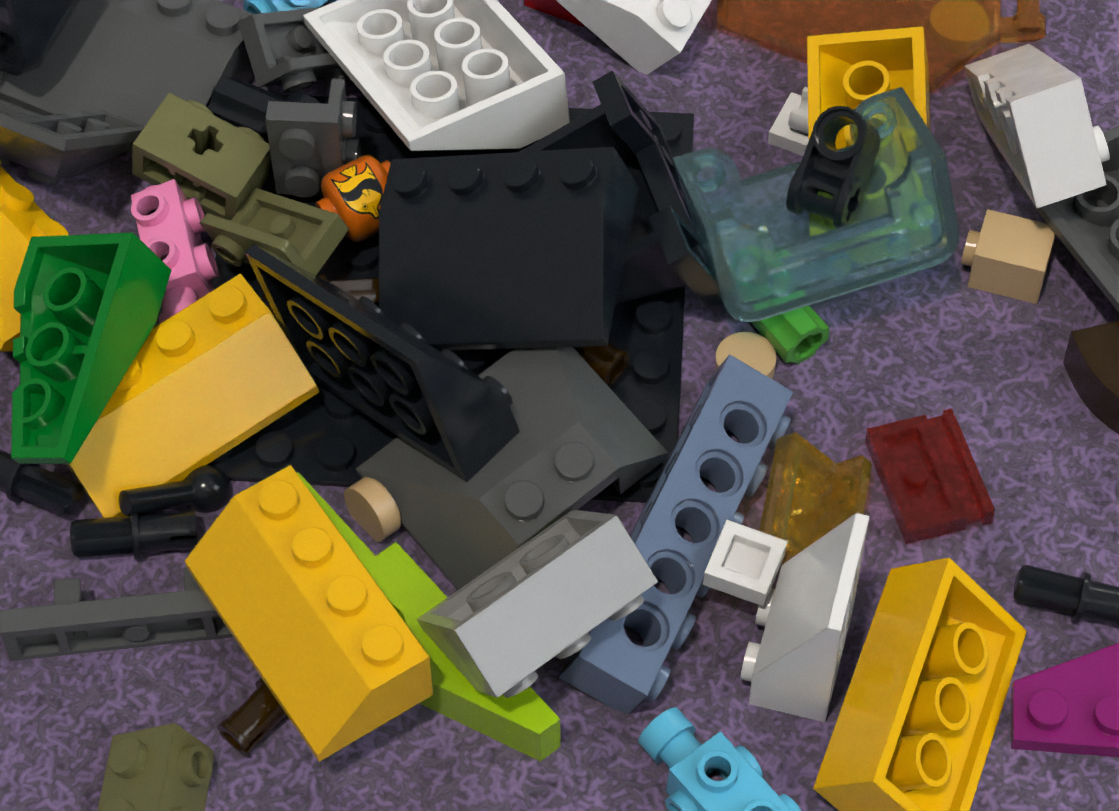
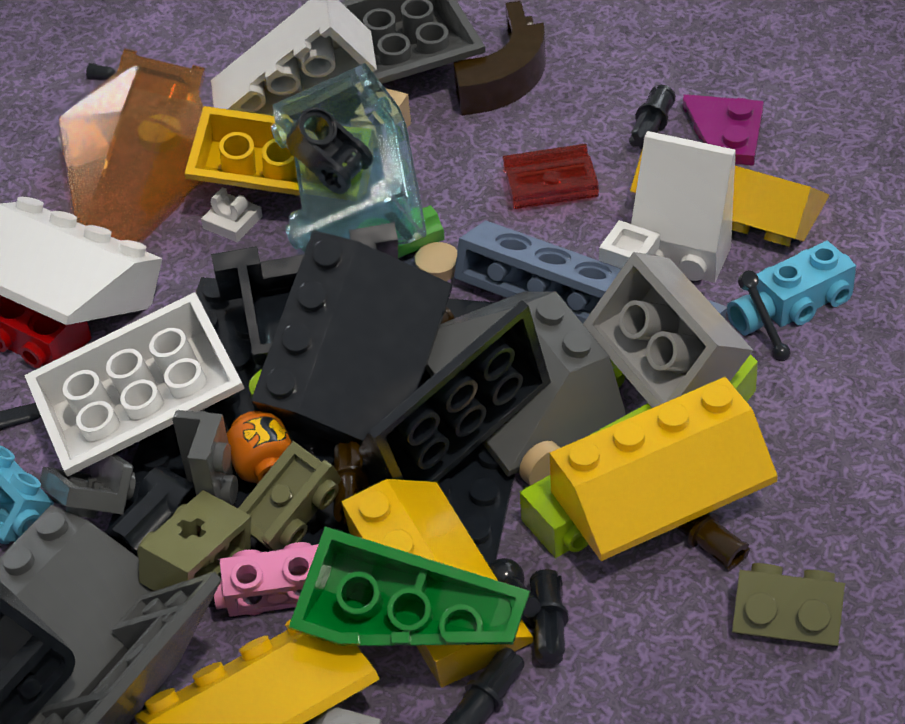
camera: 80 degrees left, 10 degrees down
(109, 624) = (629, 653): dark grey hinge -> none
(686, 714) = (748, 282): none -> black hinge
(811, 493) = (573, 222): clear yellow bracket -> none

